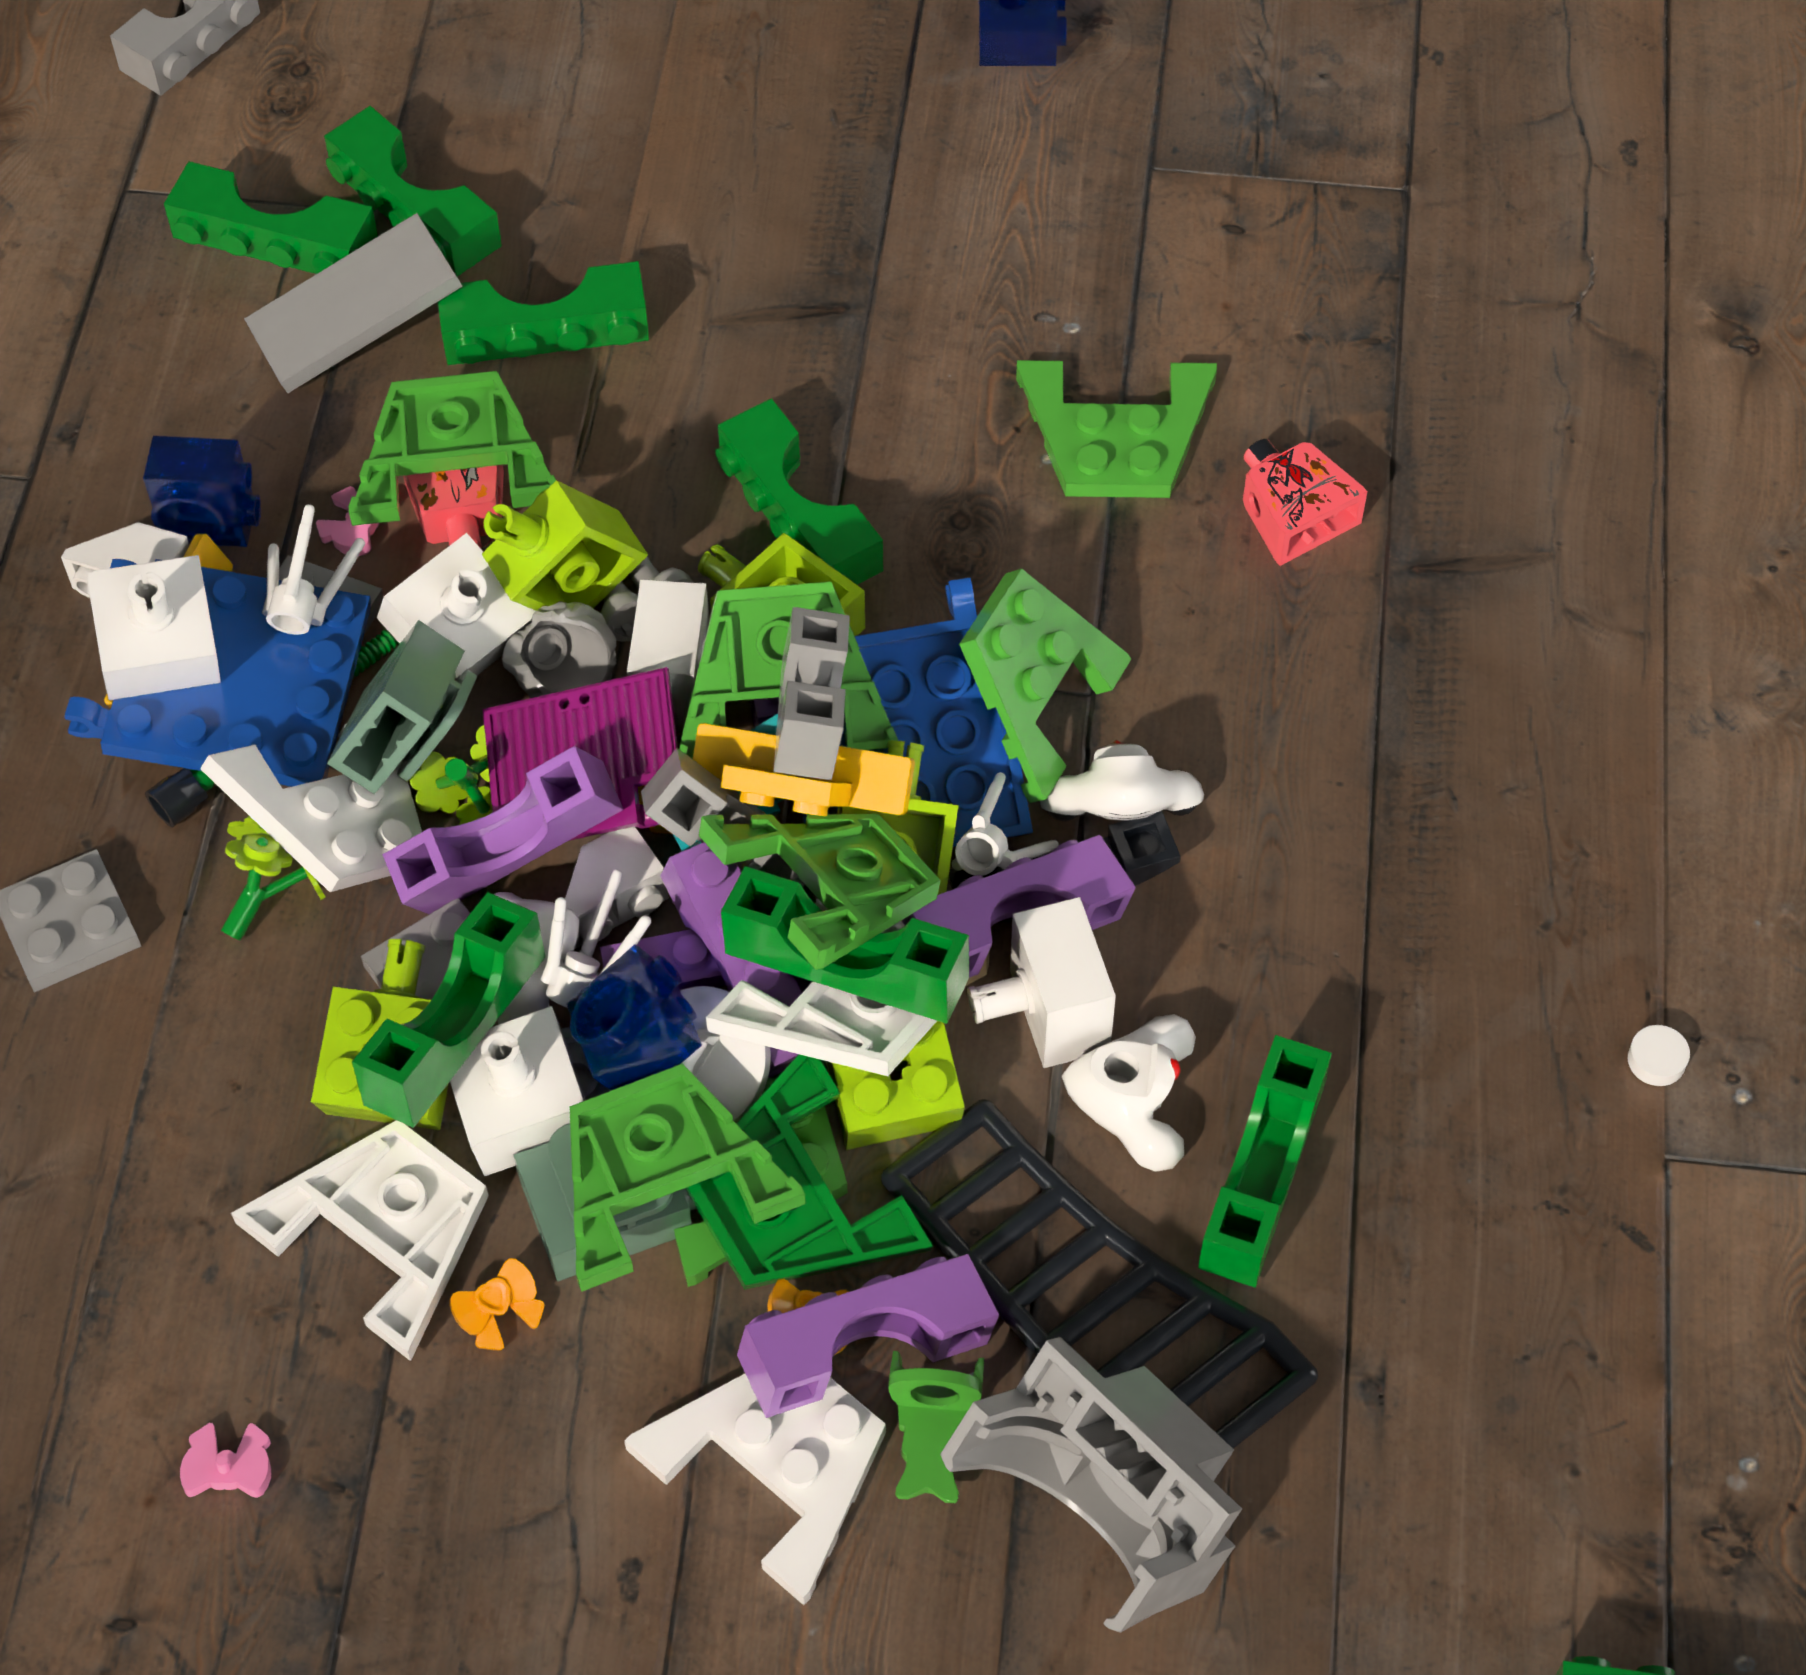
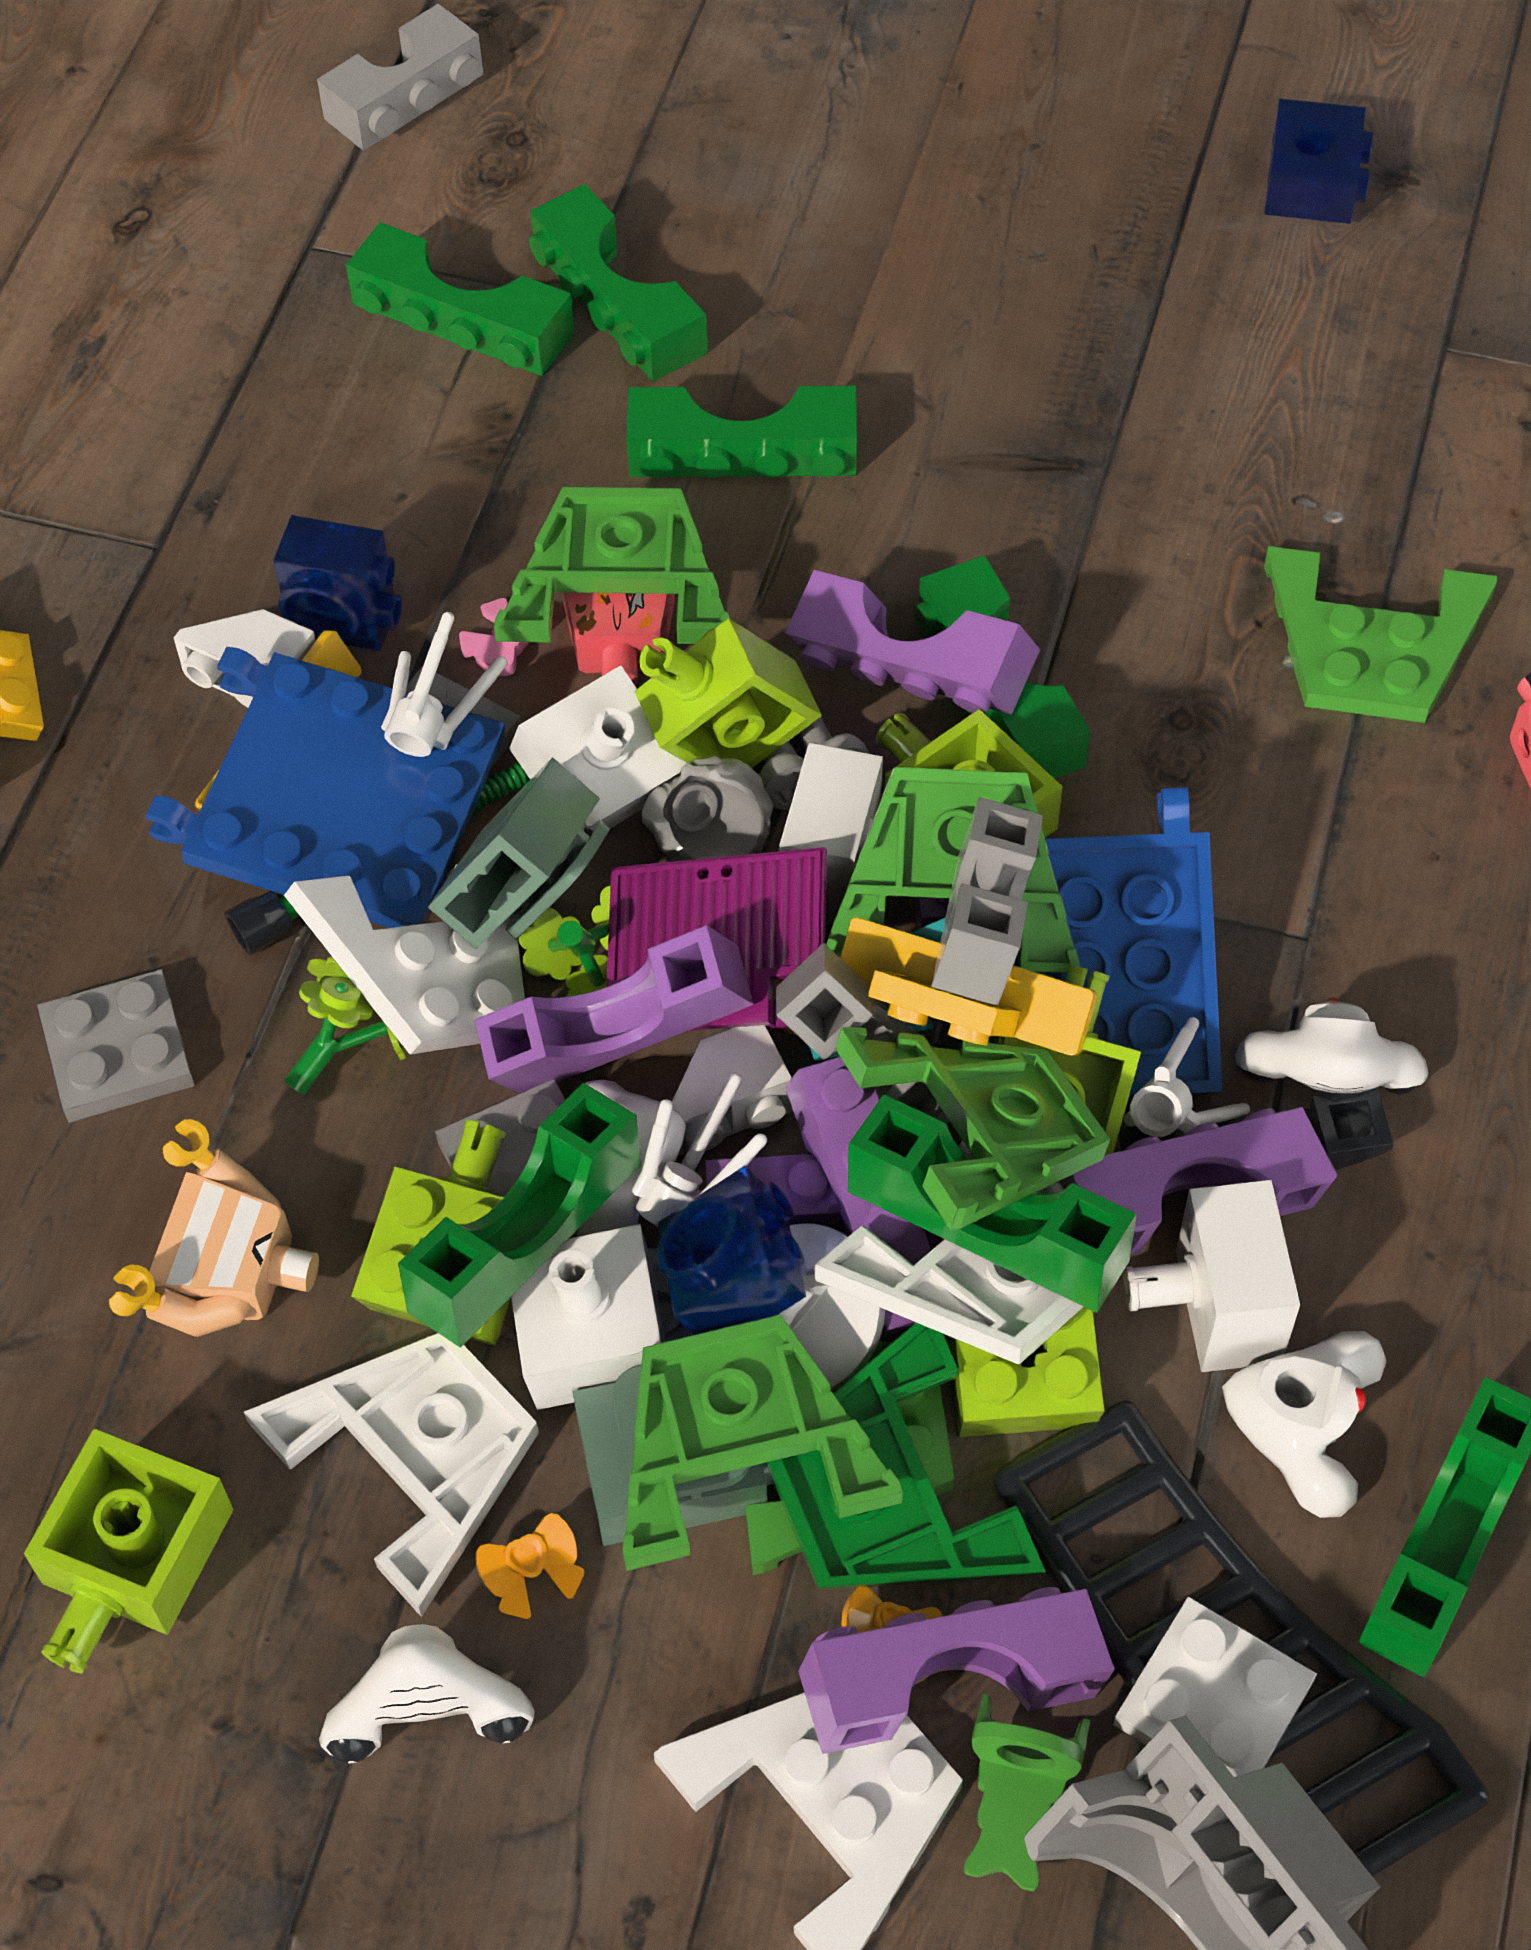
camera: 10 degrees right, 0 degrees up
(145, 1333) = (146, 1576): none -> lime brick
(153, 627) = (257, 728): white brick -> none
(186, 1079) = (218, 1250): none -> light nougat torso
(207, 1468) = (171, 1710): bright pink piece -> none
(352, 303) = (534, 396): light grey tile -> none
(417, 1408) = (423, 1680): none -> white head
(774, 491) = (973, 661): none -> medium lavender arch
(1019, 658) = (1232, 888): bright green wing -> none
(1092, 1311) = (1224, 1682): none -> white plate

